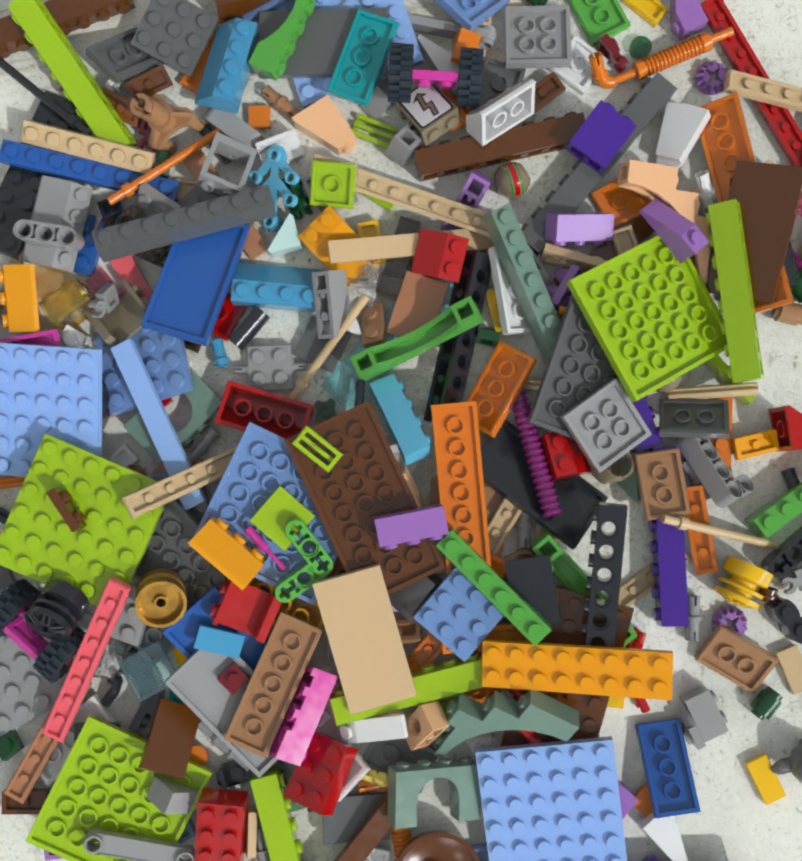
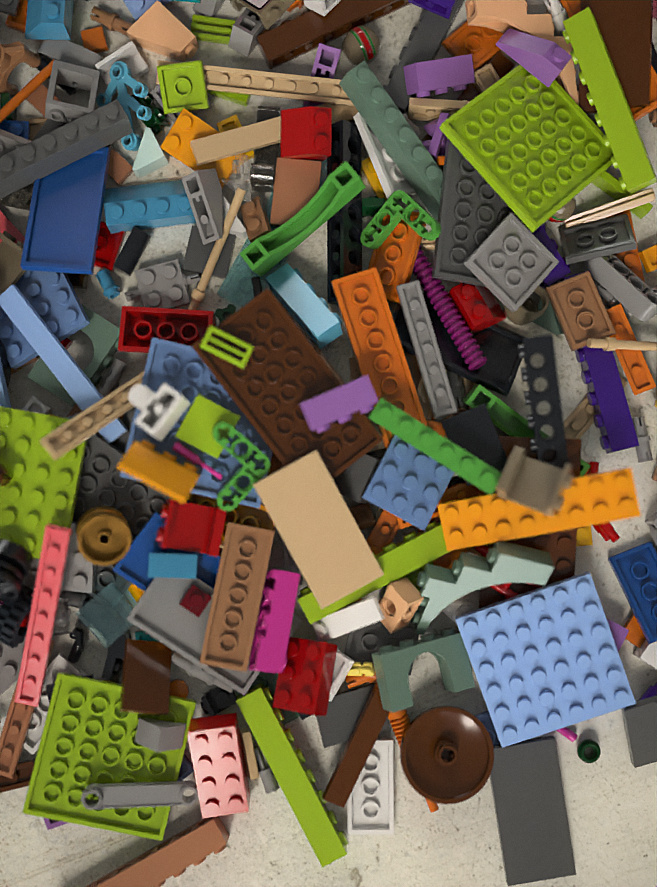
camera: 15 degrees left, 0 degrees up
(239, 493) = (158, 409): none -> white brick
(506, 488) = (426, 349): none -> light grey tile
(509, 352) = (397, 213): none -> bright green beam
(578, 645) = (534, 483): none -> dark tan panel

